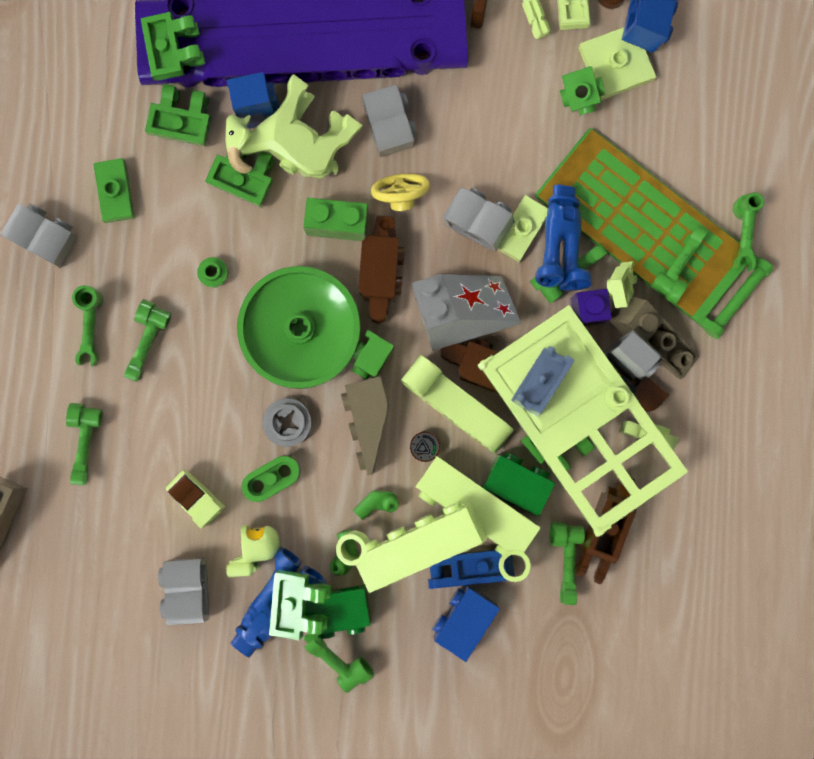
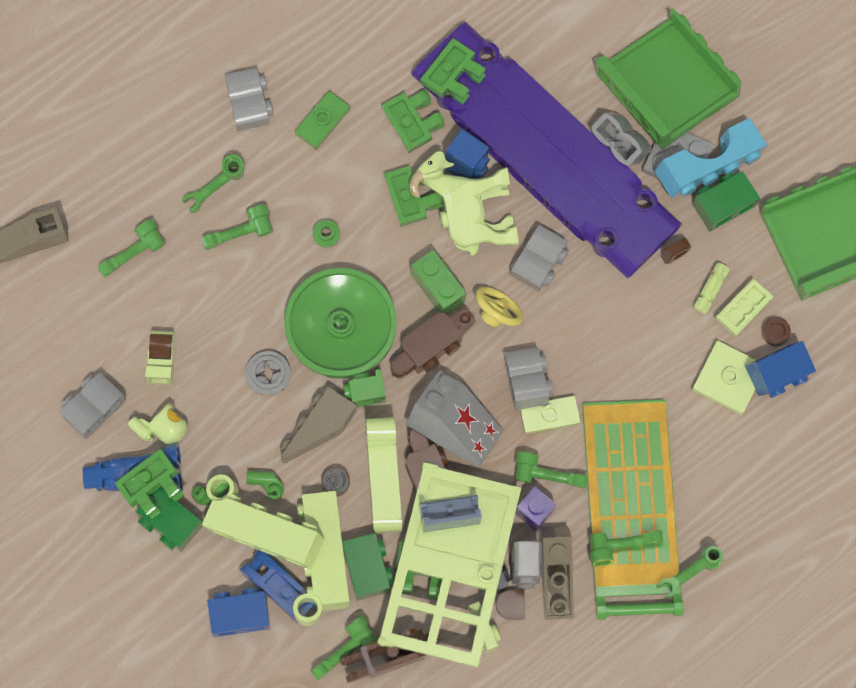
camera: 45 degrees right, 10 degrees down
(271, 478) = (221, 394): bright green plate -> none
(350, 674) = (133, 567): bright green brick -> none
(563, 225) = (576, 438): blue piece -> none
(576, 80) = (682, 369): bright green brick -> none
(621, 284) = (570, 512): yellowish green plate -> none

